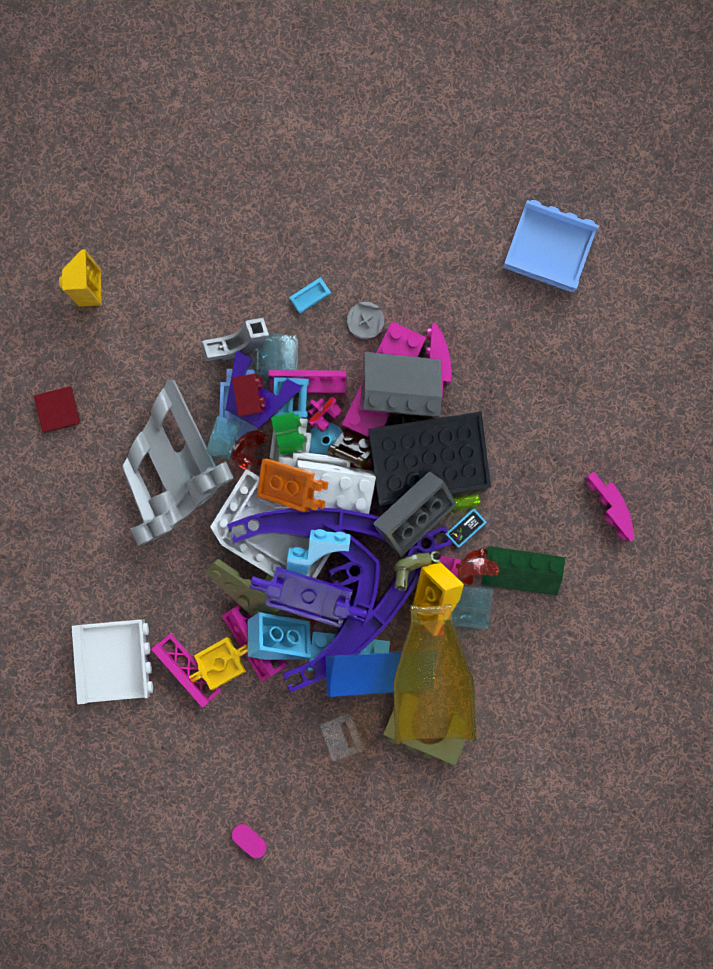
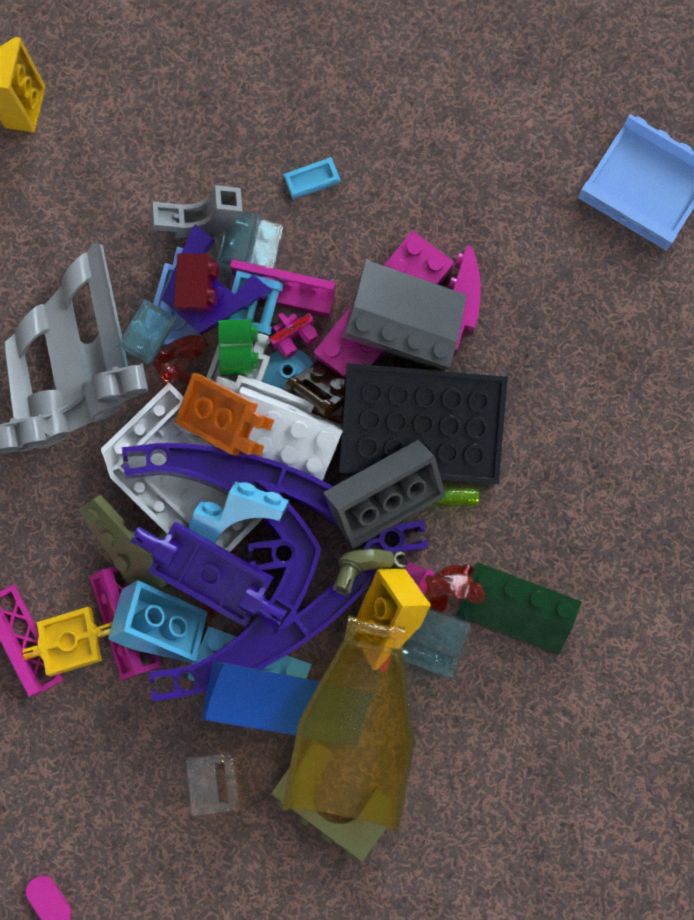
camera: 15 degrees right, 5 degrees down
(365, 320) = (378, 226): light grey tile -> none
(466, 528) = (452, 532): black tile -> none
(617, 513) = (668, 556): dark pink slope -> none

